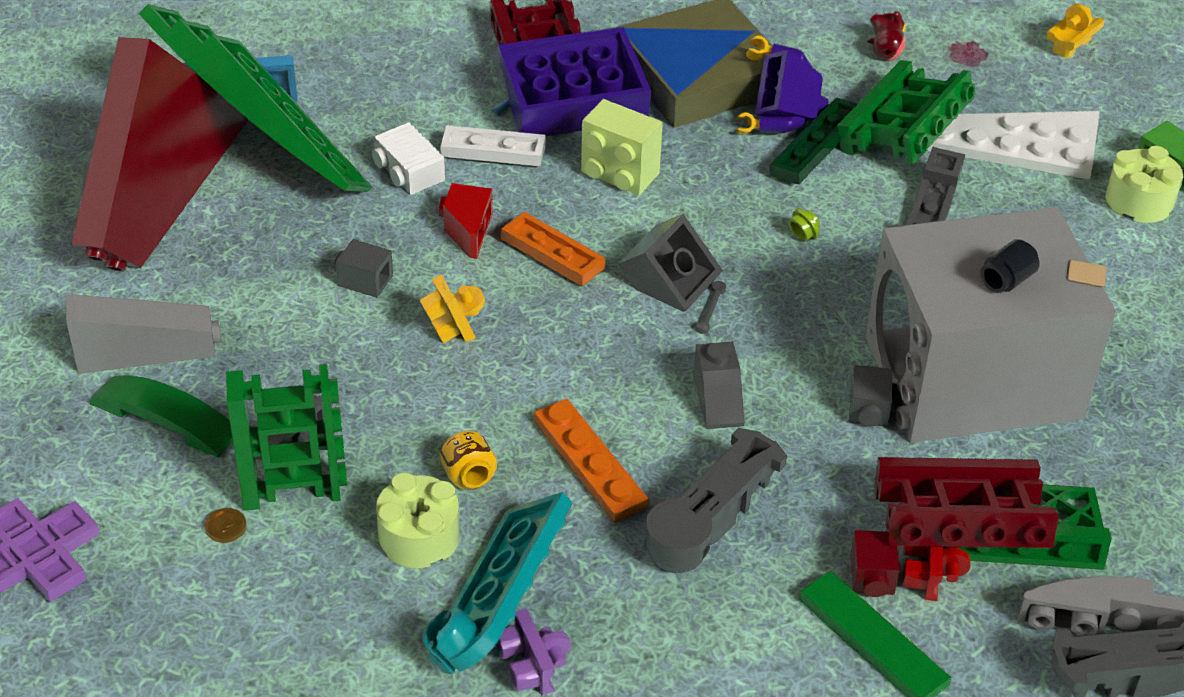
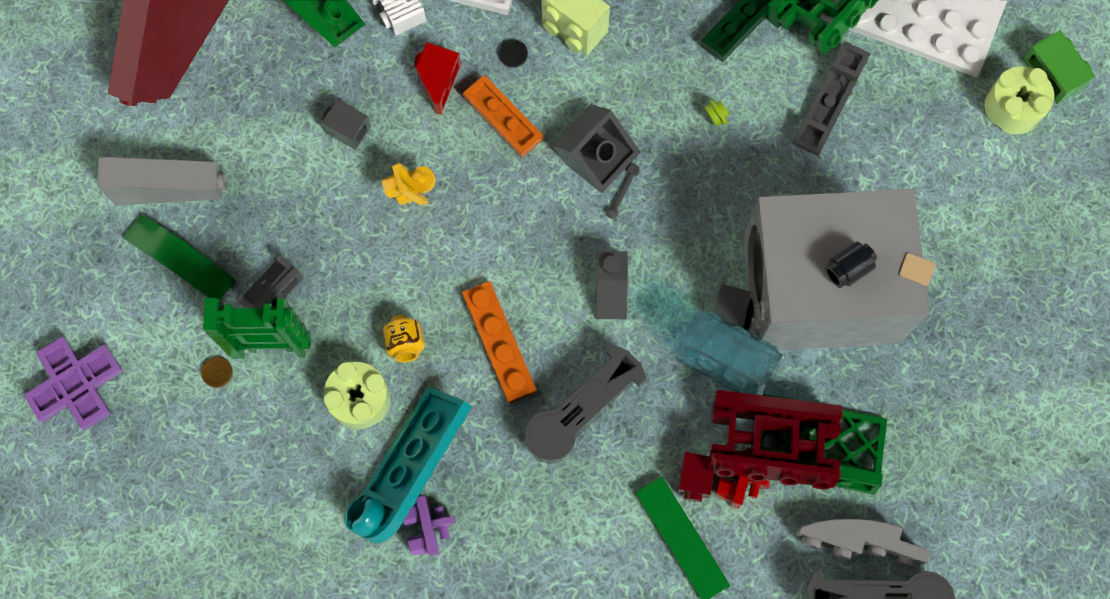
camera: 10 degrees right, 30 degrees up
(553, 198) = (513, 53): none -> pearl dark grey piece
(879, 419) = (729, 354): none -> clear light blue brick

